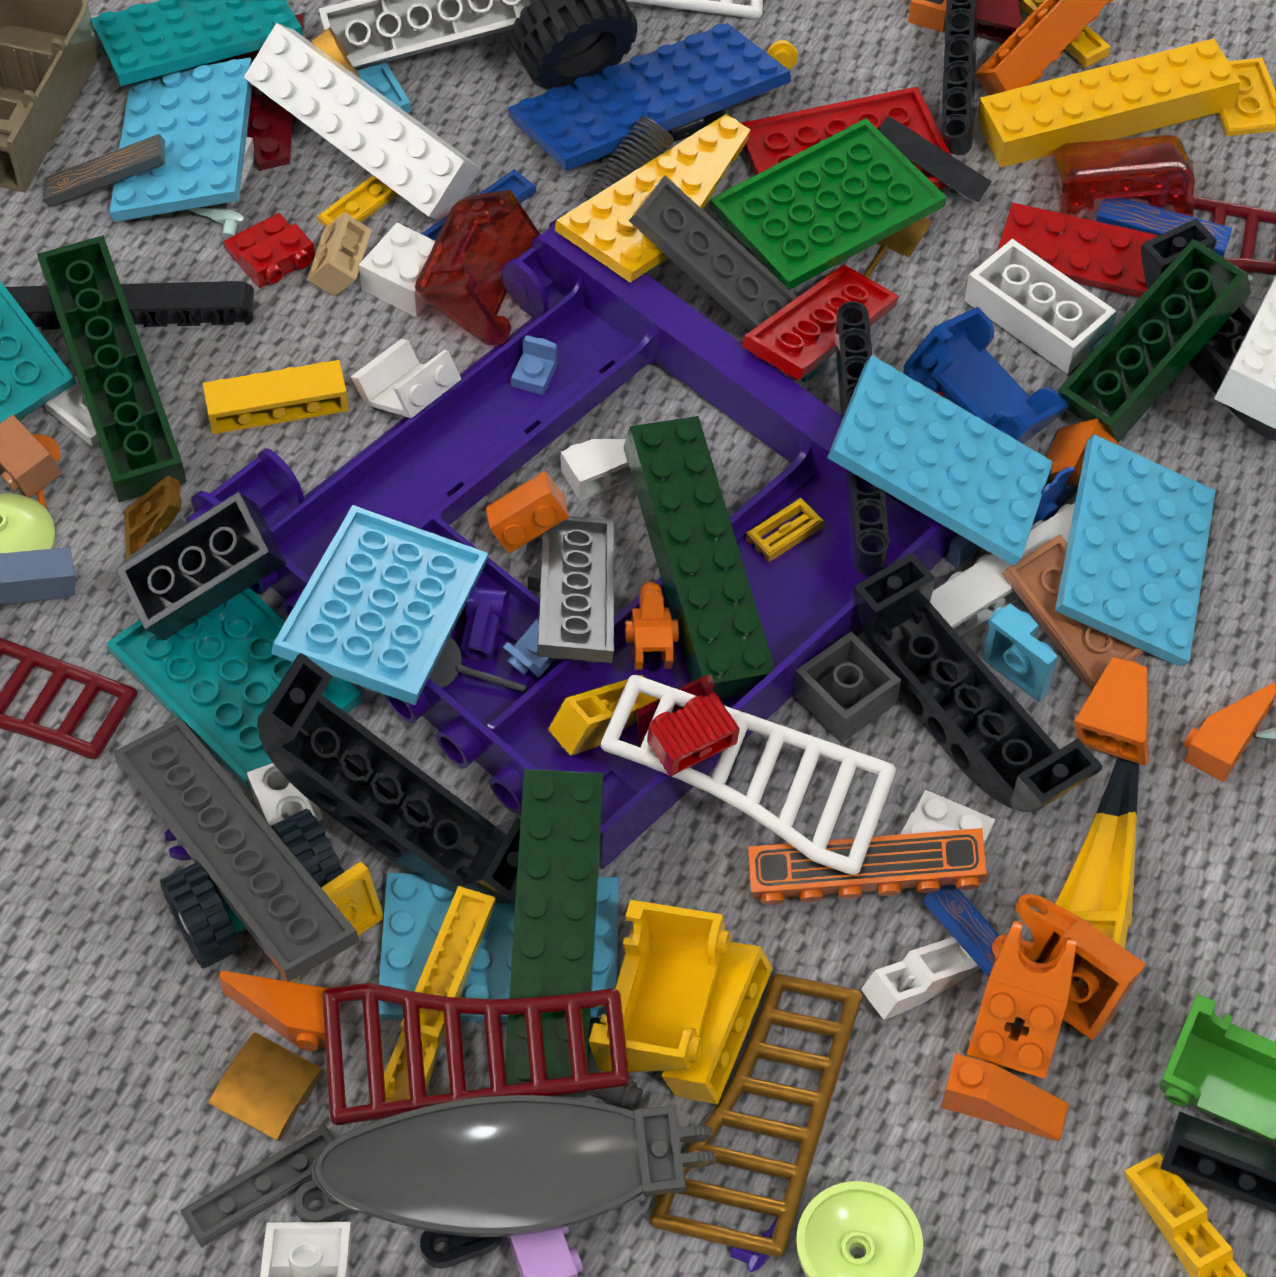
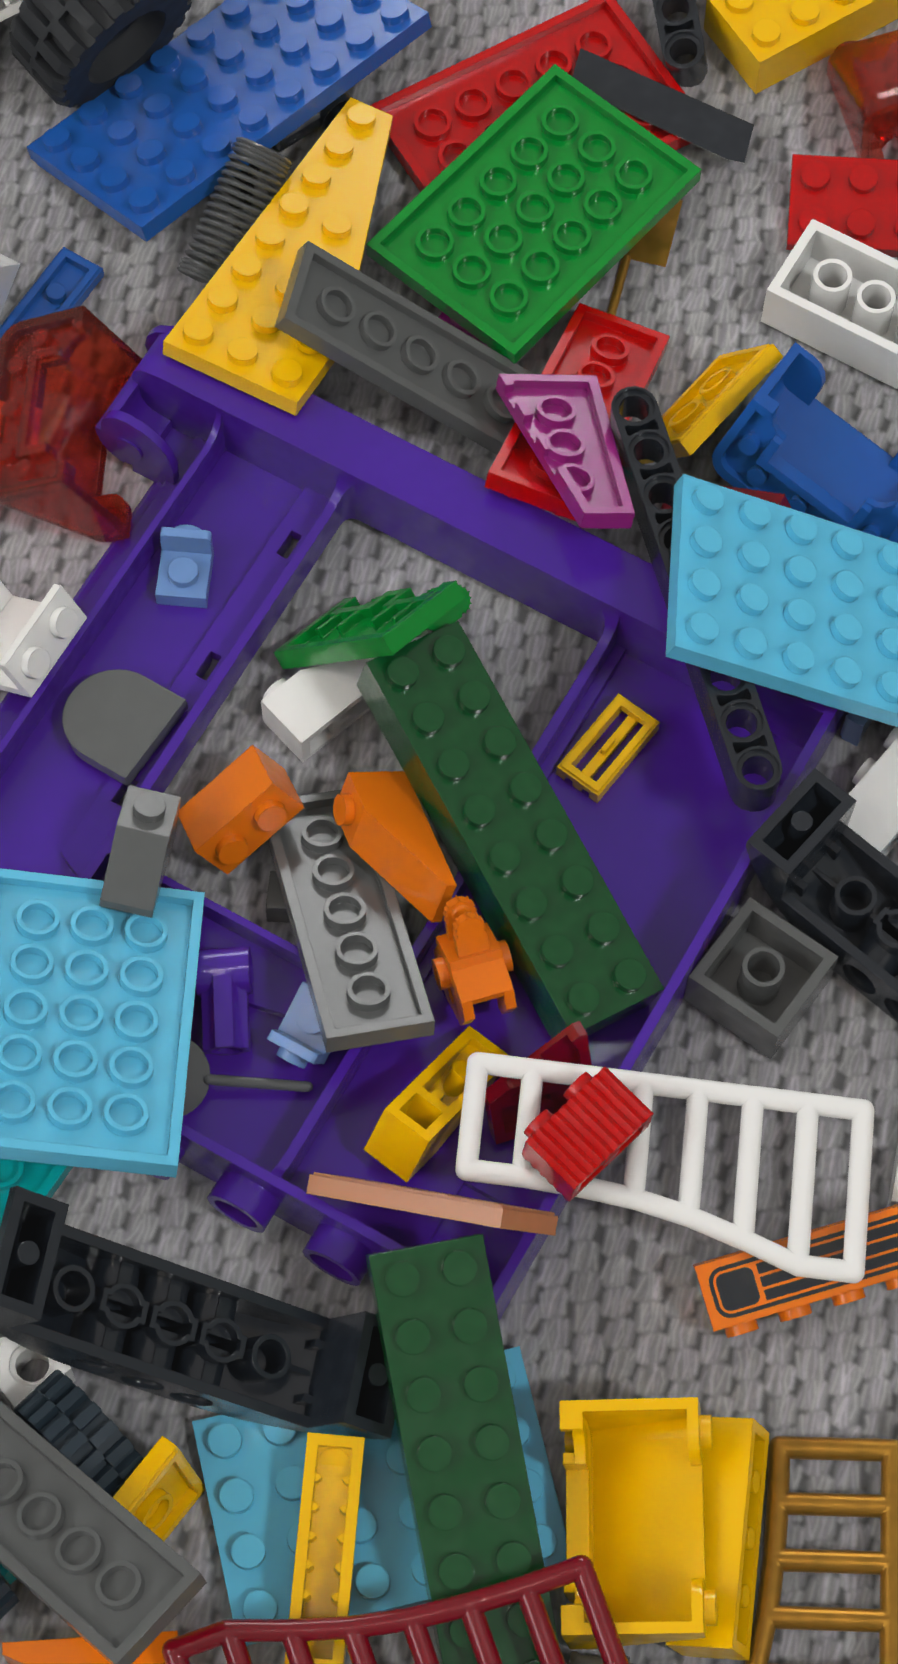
camera: 15 degrees left, 10 degrees up
(452, 514) = (140, 851): none -> dark grey slope
(465, 446) = (120, 721): none -> dark grey tile
(568, 755) = (433, 1203): none -> nougat tile
(622, 544) = (395, 838): none -> orange slope
(678, 407) = (375, 628): none -> green hinge
(807, 330) = (574, 443): none -> magenta wing
(914, 333) = (715, 396): none -> yellow tile

